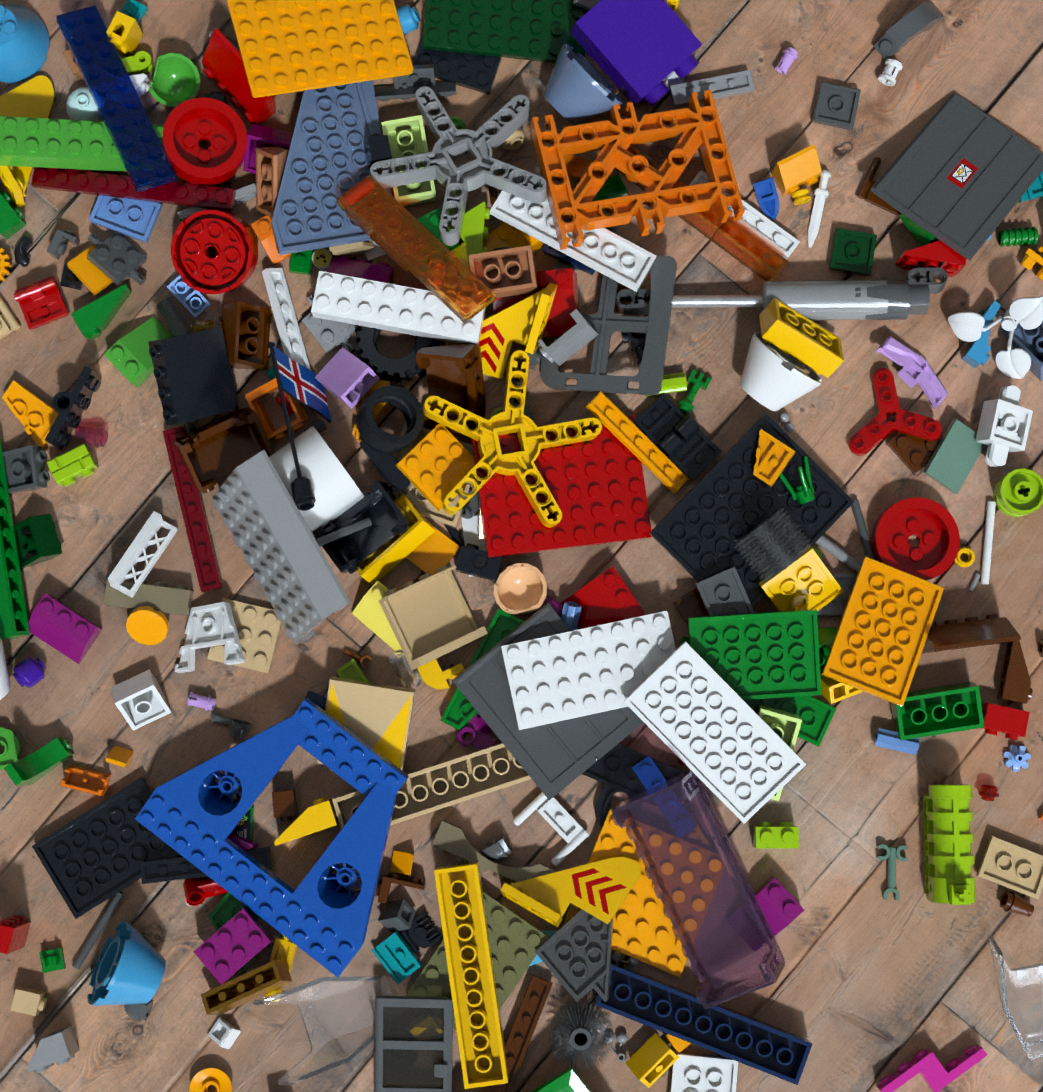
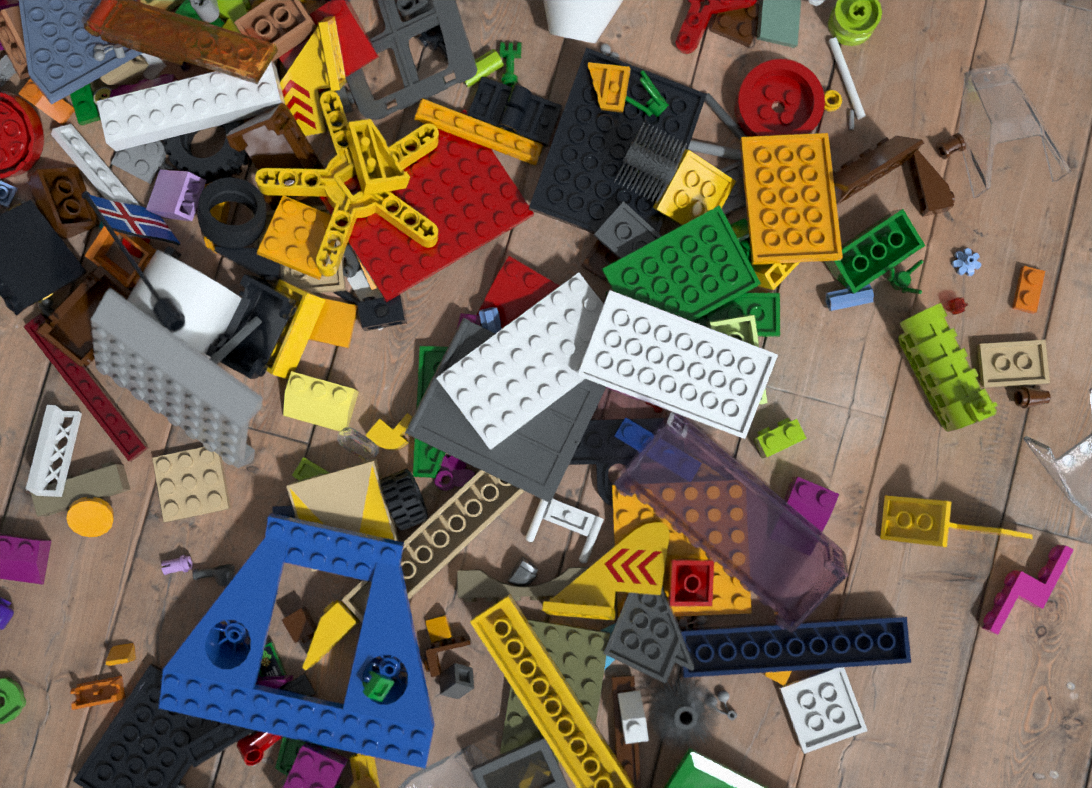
camera: 20 degrees left, 0 degrees up
(39, 763) = (42, 699): green arch -> none
(140, 700) = (116, 591): white slope -> none
(210, 627) = (150, 491): white wing -> none
(332, 888) = (377, 686): none -> green tile
(338, 228) = (99, 55): none -> light grey piece
(358, 657) = (309, 454): dark orange hand -> none
(397, 957) = (475, 720): teal plate -> none
(418, 934) = (485, 690): black piece -> none
(424, 737) = (404, 499): none -> black tyre
(430, 617) = (356, 382): tan panel -> none
(520, 589) = (432, 317): light nougat cylinder -> none
(533, 432) = (373, 161): none -> yellow wedge
(535, 1017) = (632, 717): none -> white slope
(569, 342) = (370, 64): light grey panel -> none
(639, 925) = (691, 582): none -> red slope
(652, 1060) = (762, 704): yellow brick -> none
(867, 969) = (926, 522): none -> yellow piece
(891, 854) = (895, 405): sand green bar -> none
(951, 747) = (902, 279): none -> green plant
(1004, 720) = (941, 232): red brick -> none

